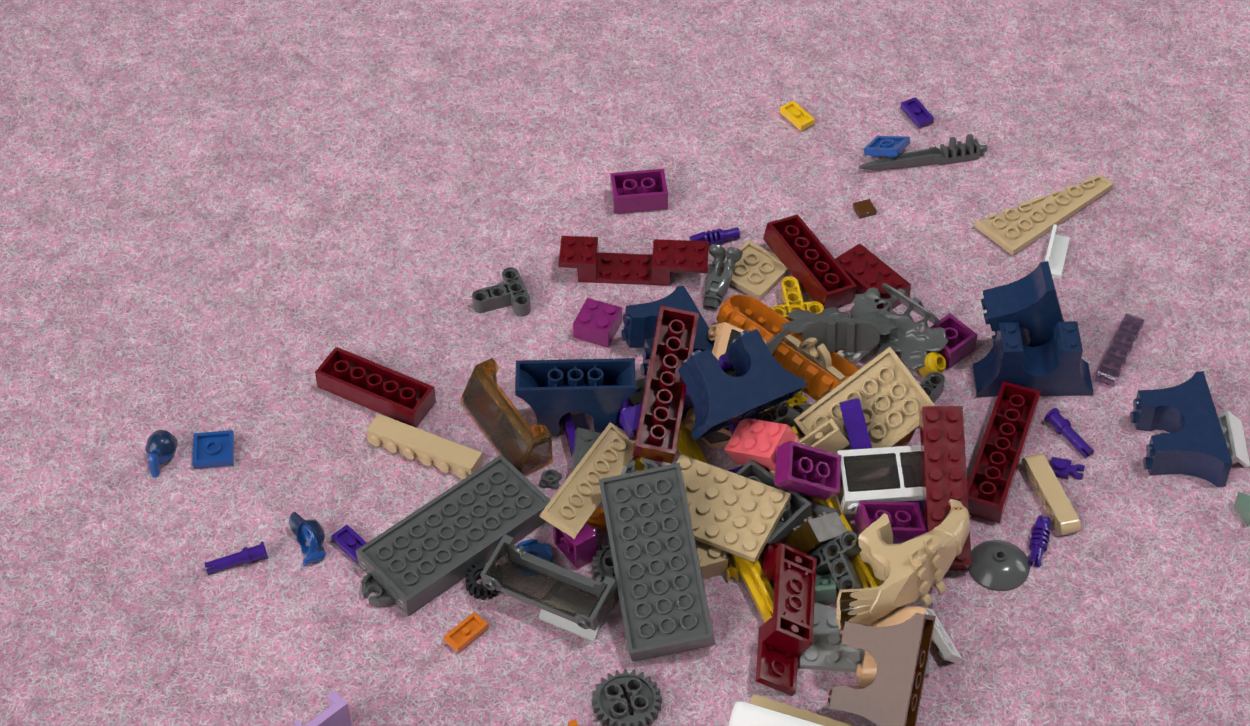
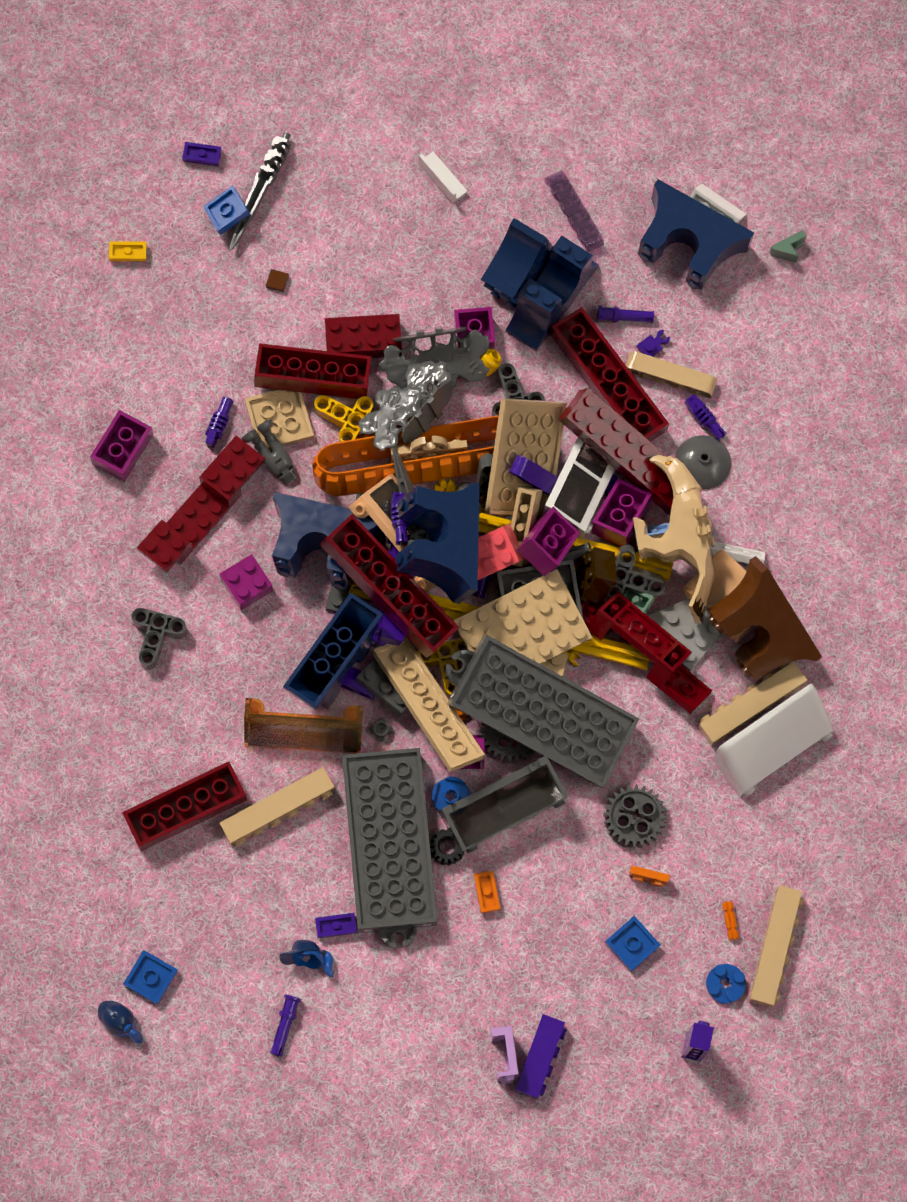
camera: 60 degrees left, 25 degrees up
(1034, 218) = (391, 170): tan wing -> none

